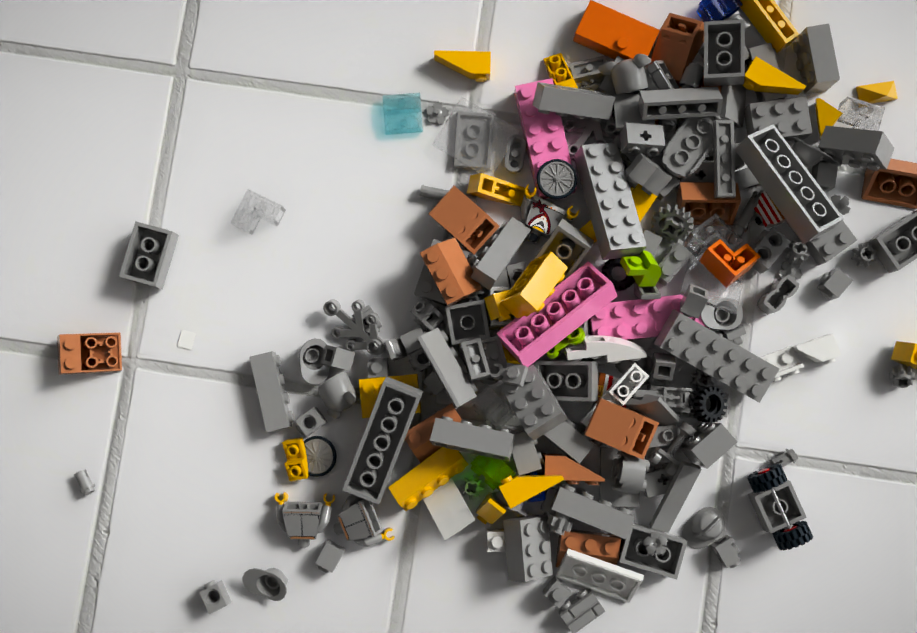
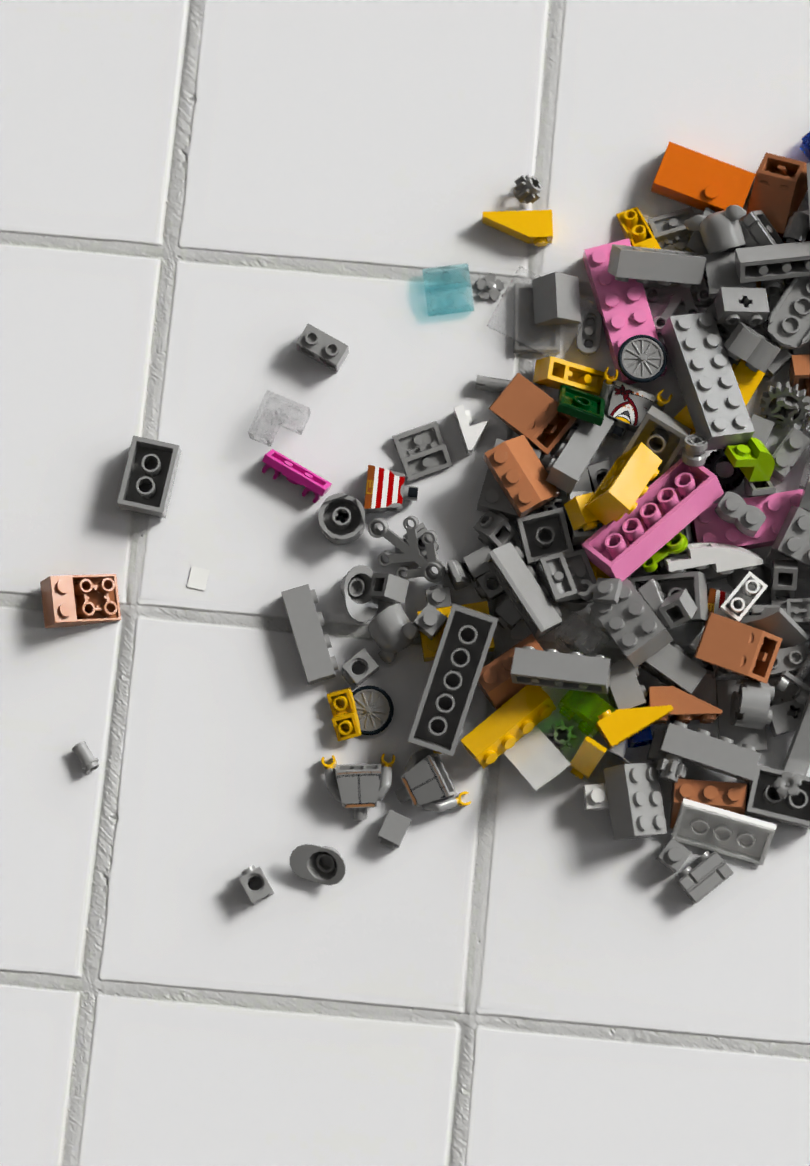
camera: 10 degrees left, 5 degrees down
(269, 258) = (295, 474): none -> dark pink plate
(293, 293) = (343, 505): none -> light grey brick
(297, 156) = (322, 347): none -> light grey brick
(341, 276) = (386, 490): none -> torso
(366, 391) = (430, 621): none -> light grey brick
(373, 245) = (422, 450): none -> light grey slope
(413, 234) = (469, 434): none -> white slope
(472, 34) = (527, 189): none -> light grey gear
(490, 126) = (556, 299): none -> light grey slope
(503, 215) = (580, 405): none -> dark green tile
(555, 384) = (654, 598): none -> light grey slope
(573, 393) = (678, 608): none -> light grey brick
(595, 260) = (695, 450): none -> light grey wheel
(634, 317) = (735, 510): none -> light grey brick

